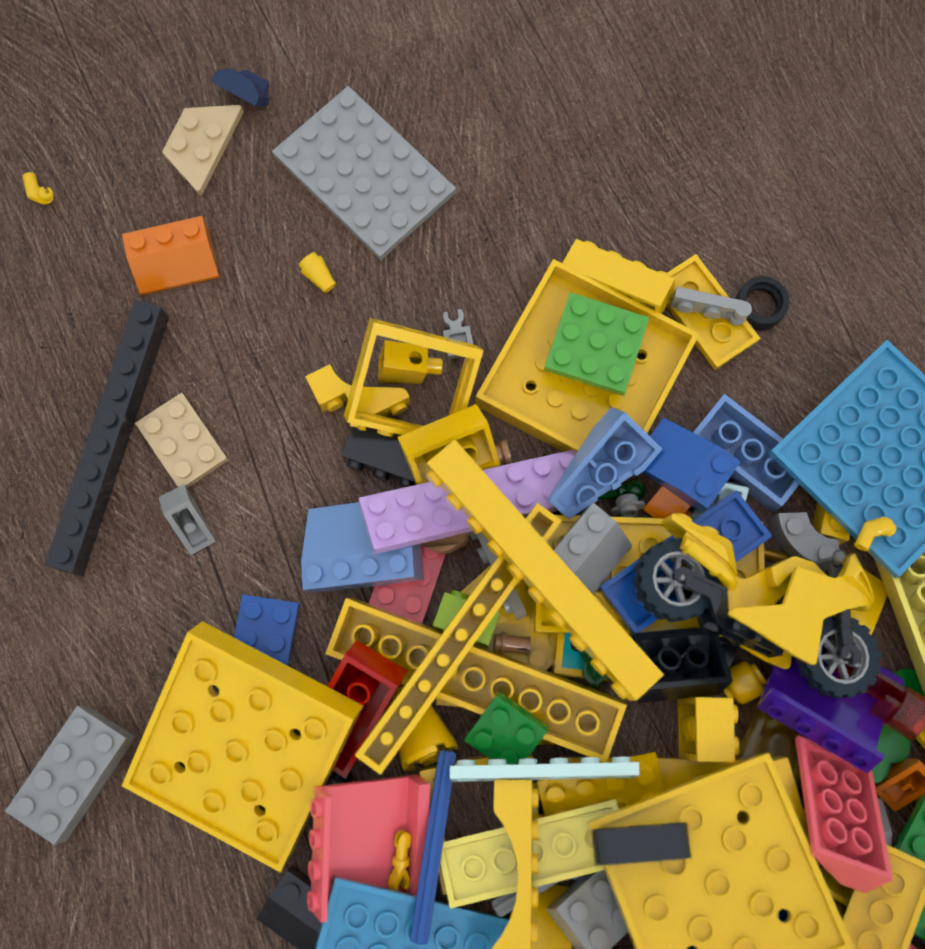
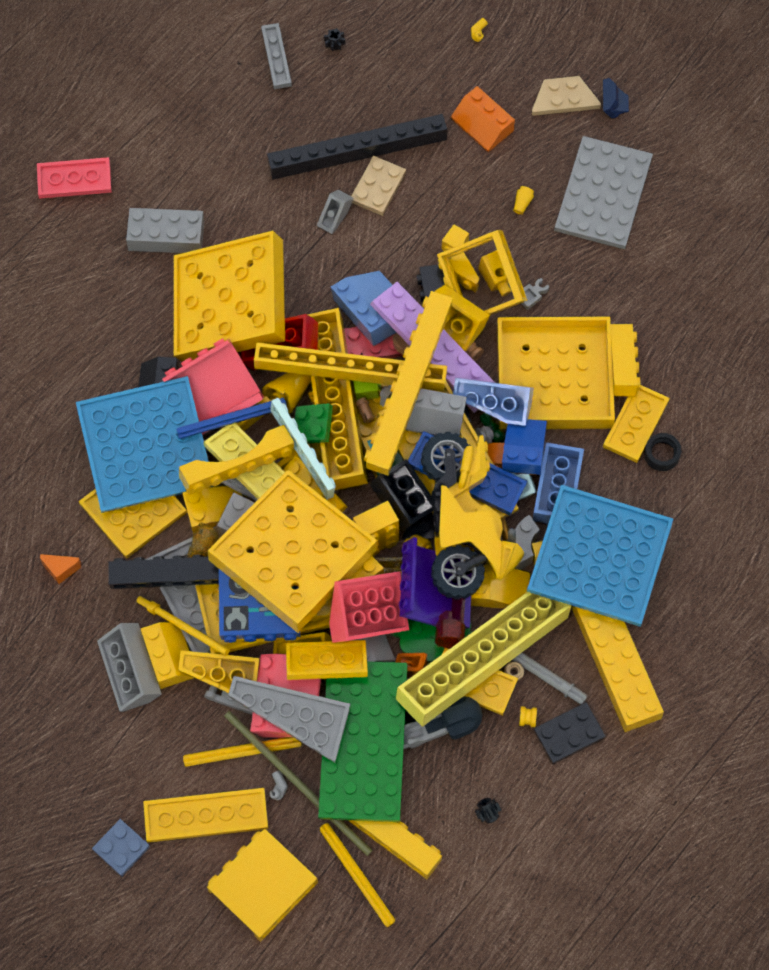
camera: 65 degrees right, 10 degrees down
(268, 626) = (300, 285): blue plate -> none
(401, 861) = (213, 412): yellow piece -> none
(596, 344) = (570, 364): bright green plate -> none
(641, 843) = (291, 493): black beam -> none
(711, 305) = (637, 418): light grey plate -> none
(873, 528) = (544, 557): yellow arm -> none

